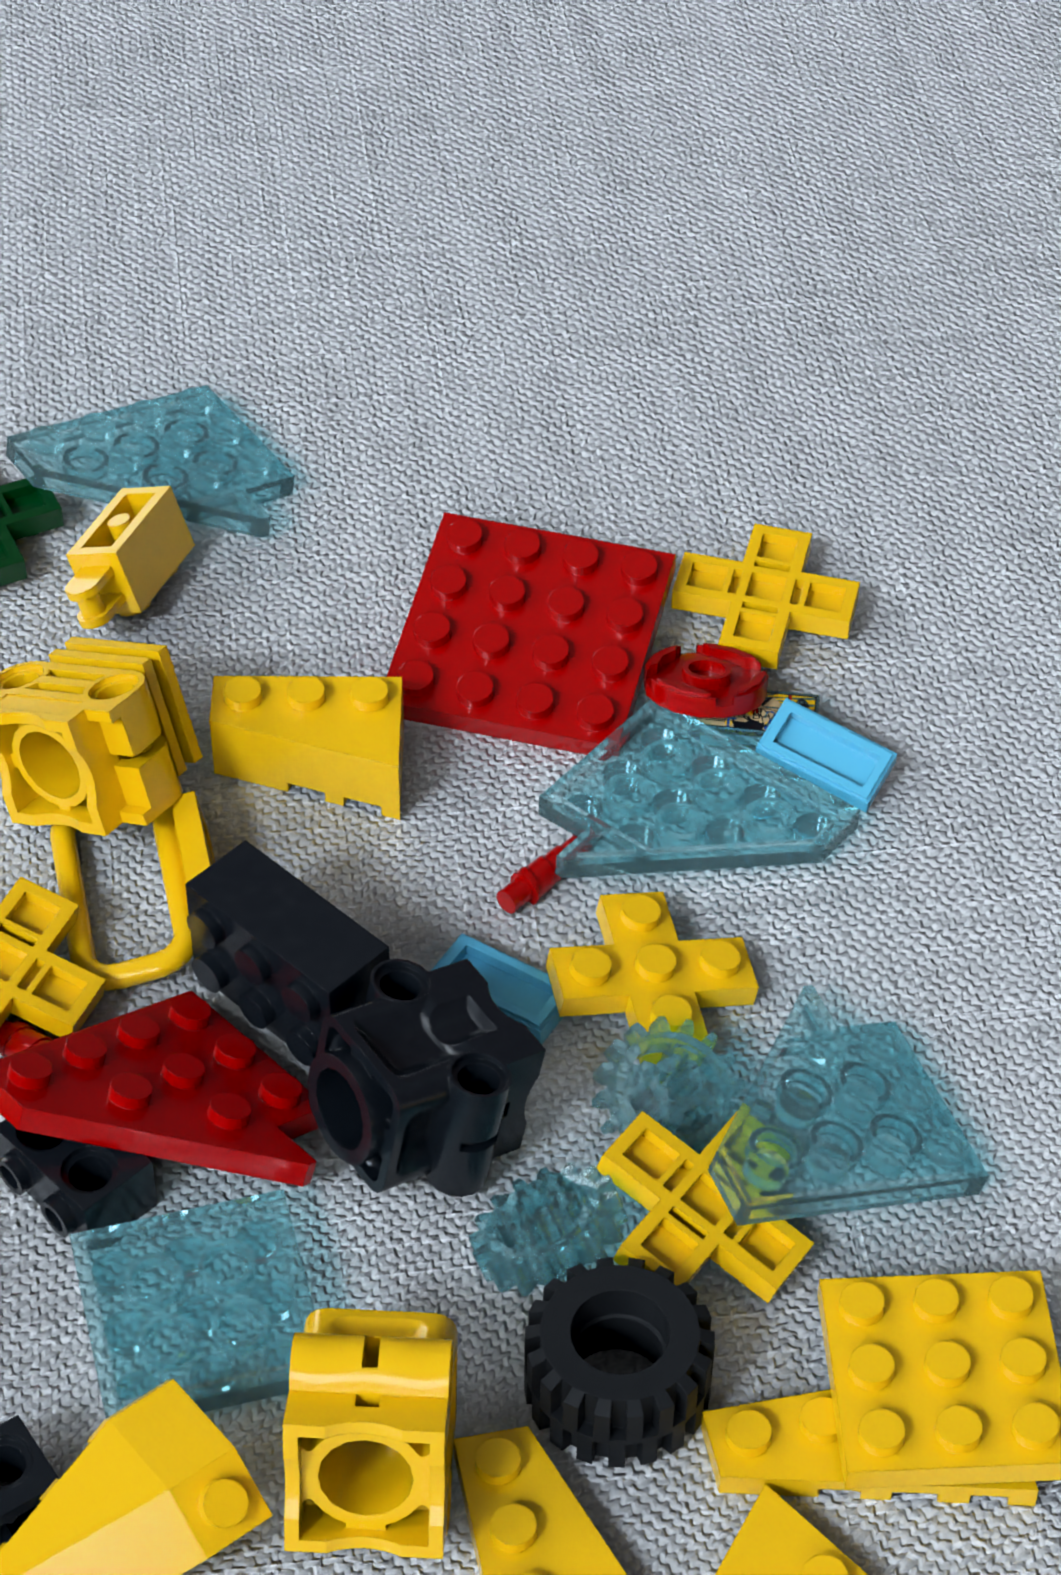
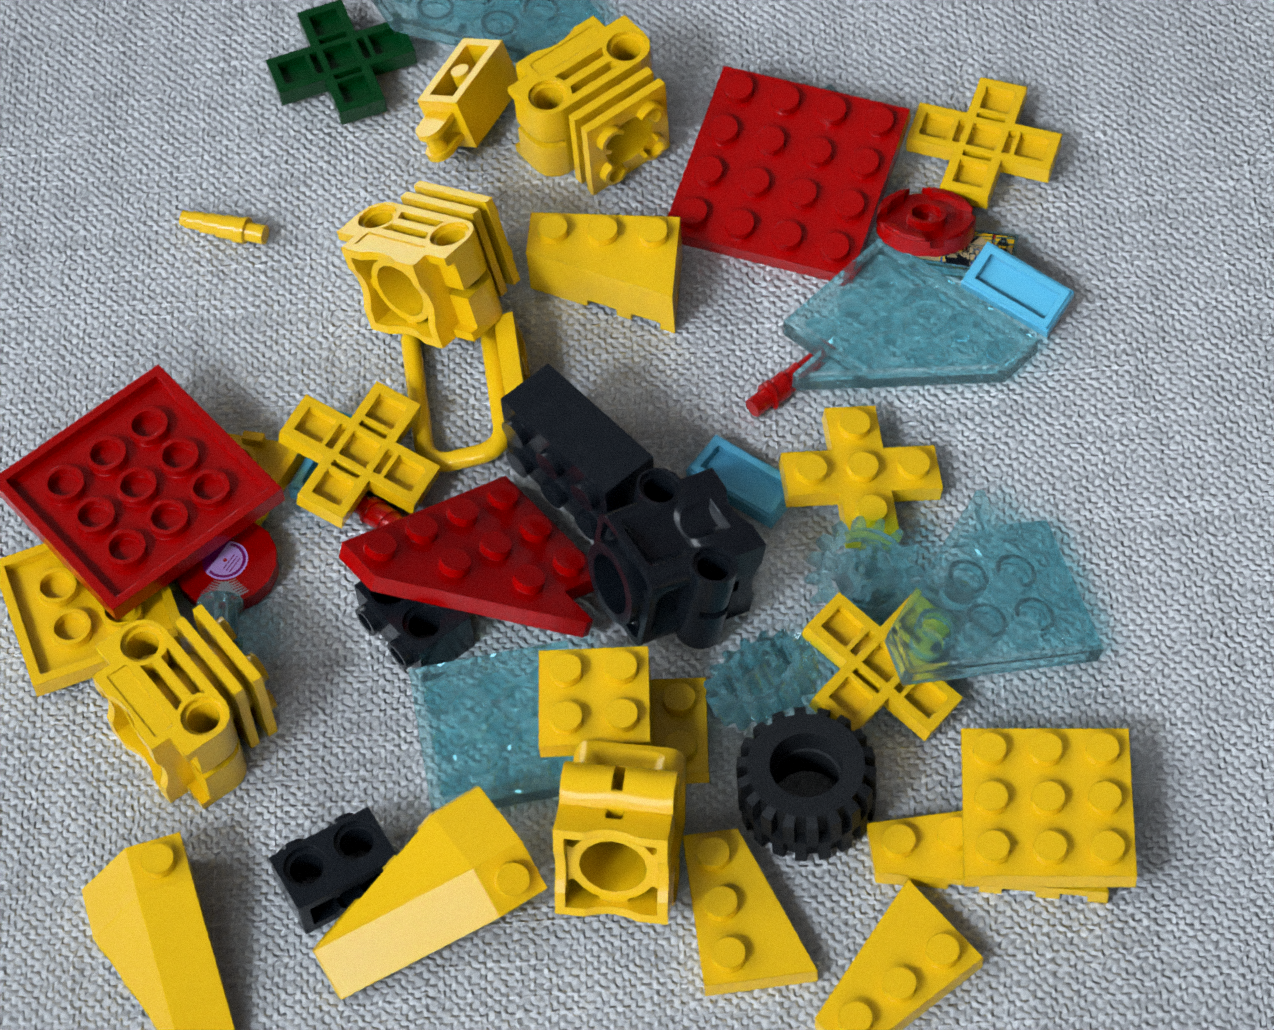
camera: 10 degrees right, 10 degrees up
(283, 558) = (591, 104): none -> yellow piece
(350, 1255) = (614, 699): none -> yellow bracket

